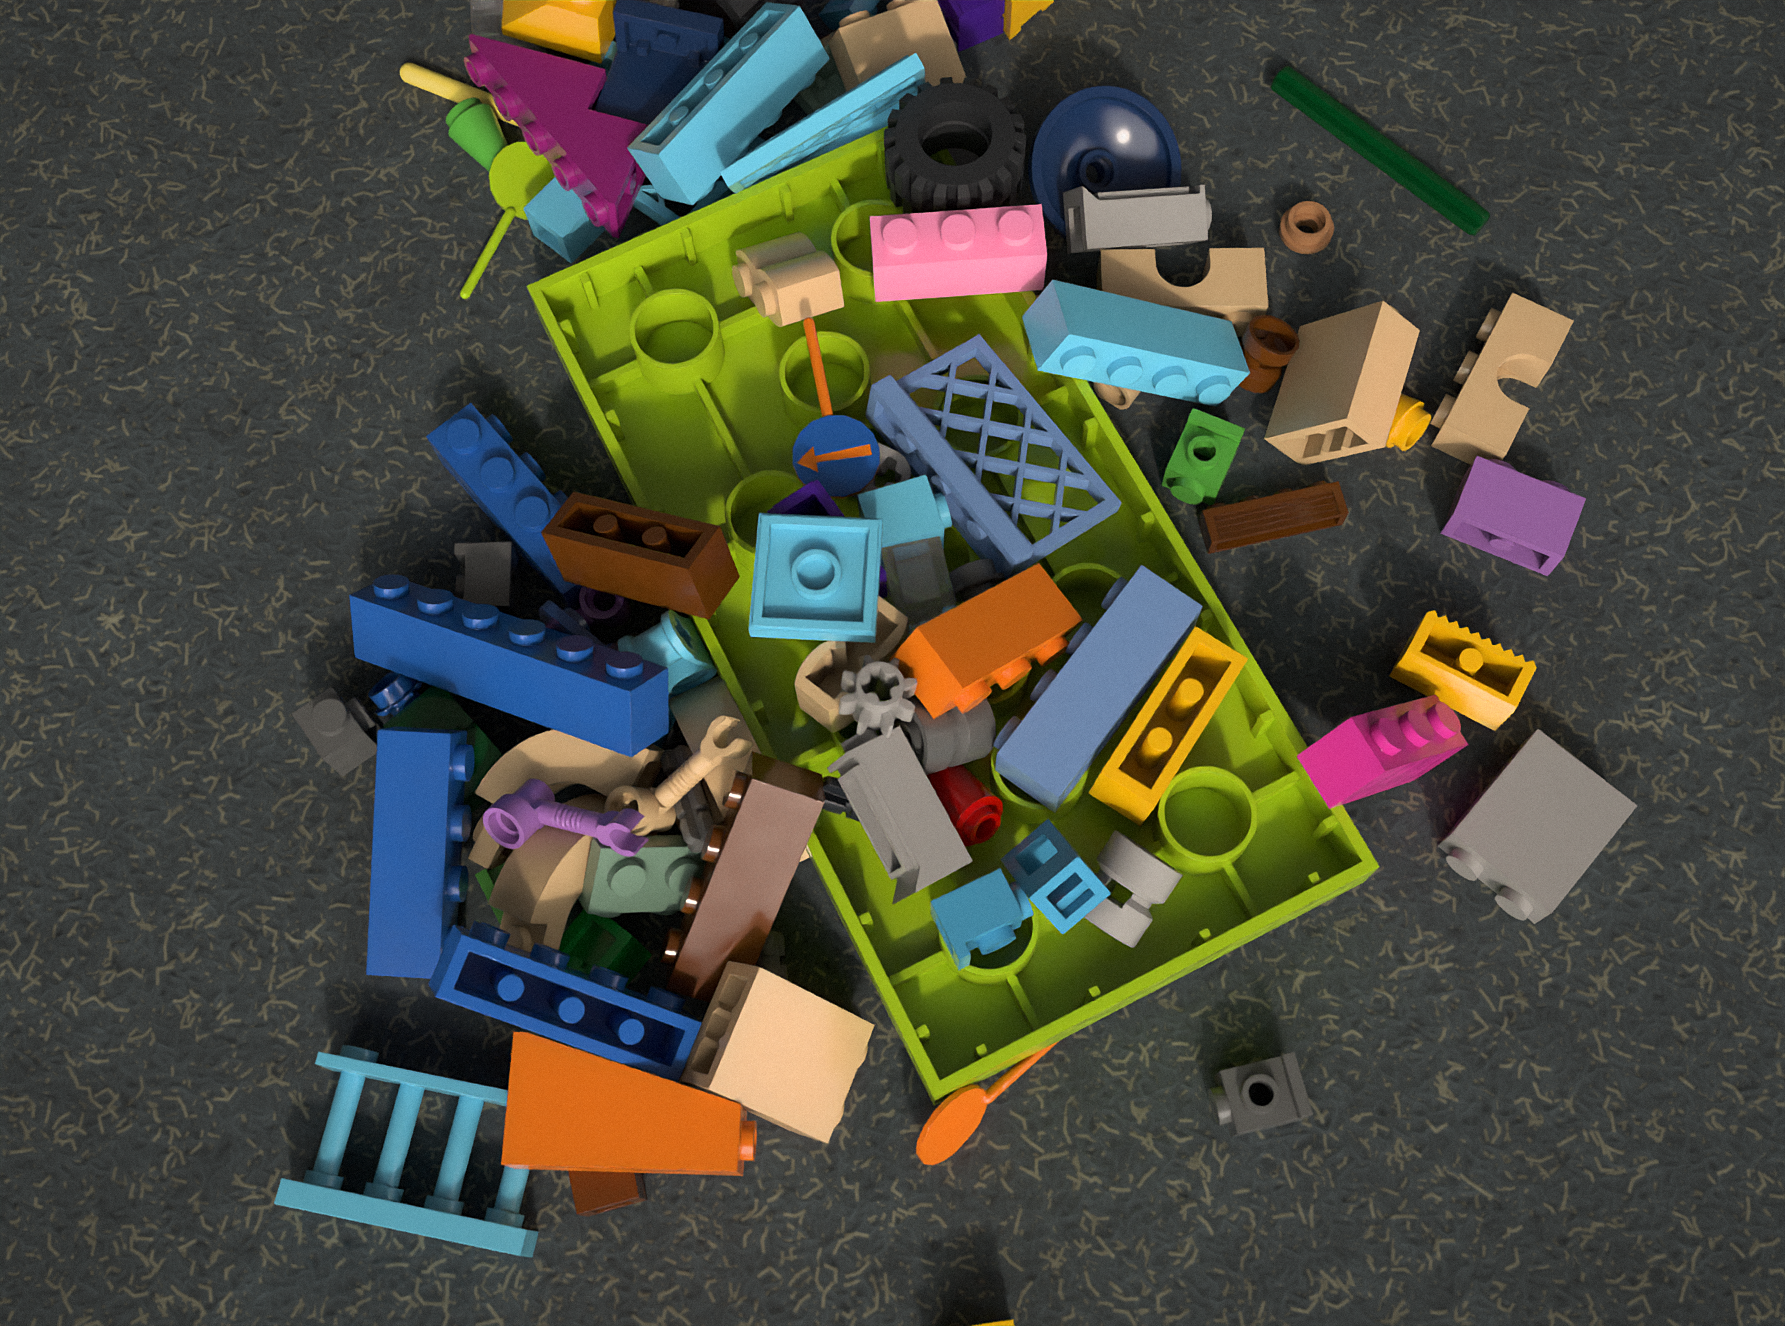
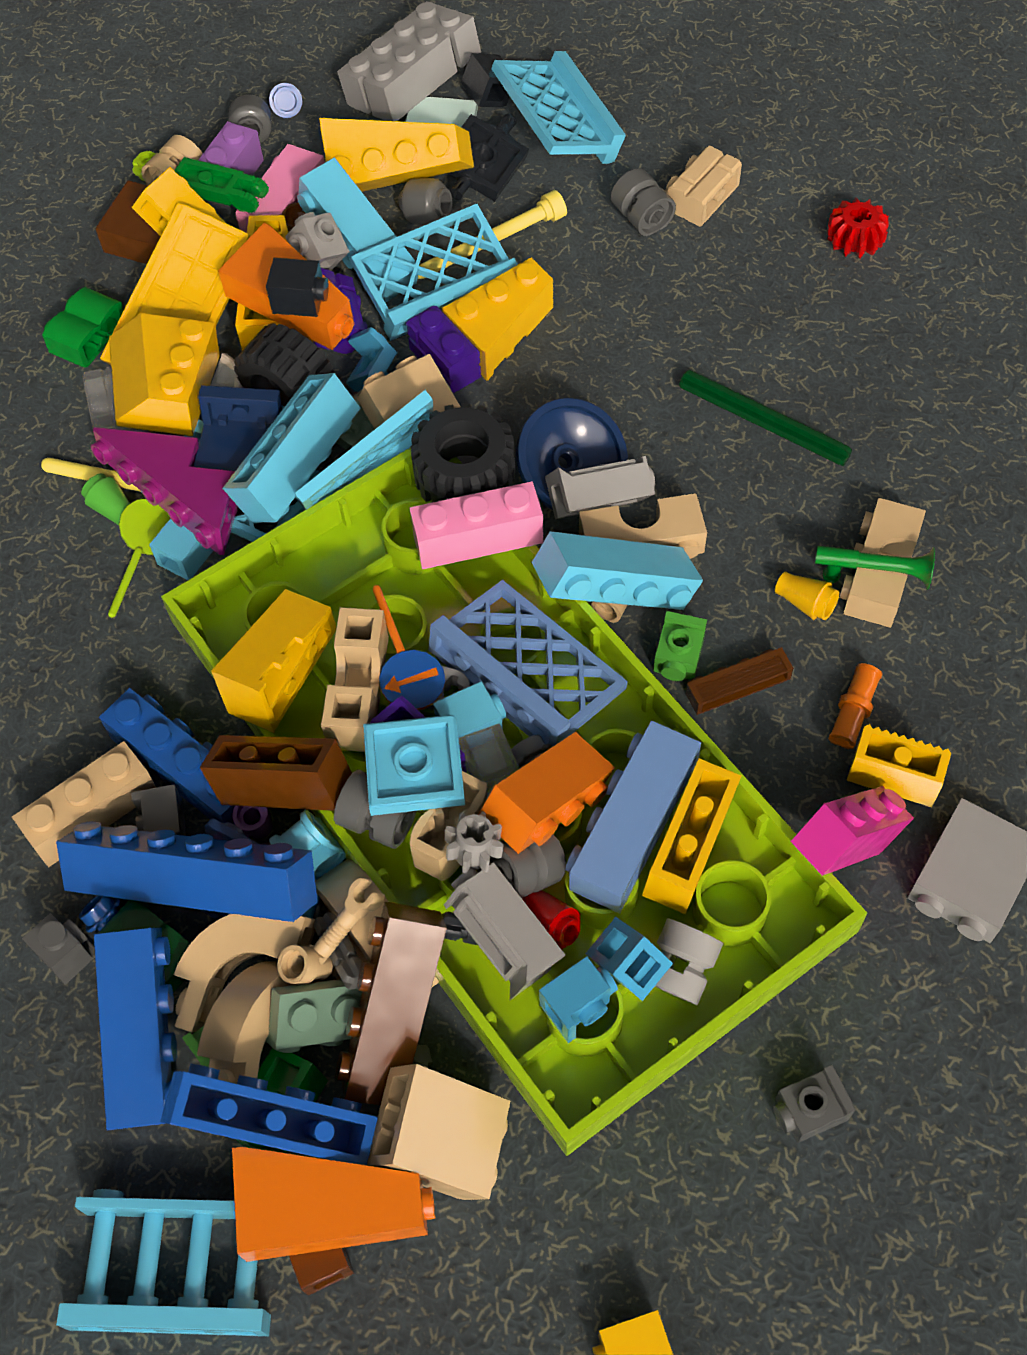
camera: 10 degrees left, 10 degrees down
(403, 539) = (93, 794): none -> tan brick
(533, 805) = (212, 982): medium lavender brick -> none
(660, 398) = (274, 659): none -> yellow wedge
(729, 626) = (354, 814): none -> dark grey wheel
(772, 414) = (355, 697): none -> tan arch
(788, 279) = (355, 563): tan brick -> none
(962, 1113) = (588, 1158): orange piece -> none
(1269, 353) = (712, 561): reddish brown wheel -> none
(1306, 214) = (727, 468): medium nougat plate -> none
(1343, 384) = (771, 578): tan brick -> none
(1422, 577) = (855, 706): none -> orange pin
(1435, 369) = (836, 558): none -> green piece
(1513, 515) = (913, 651): medium lavender brick -> none

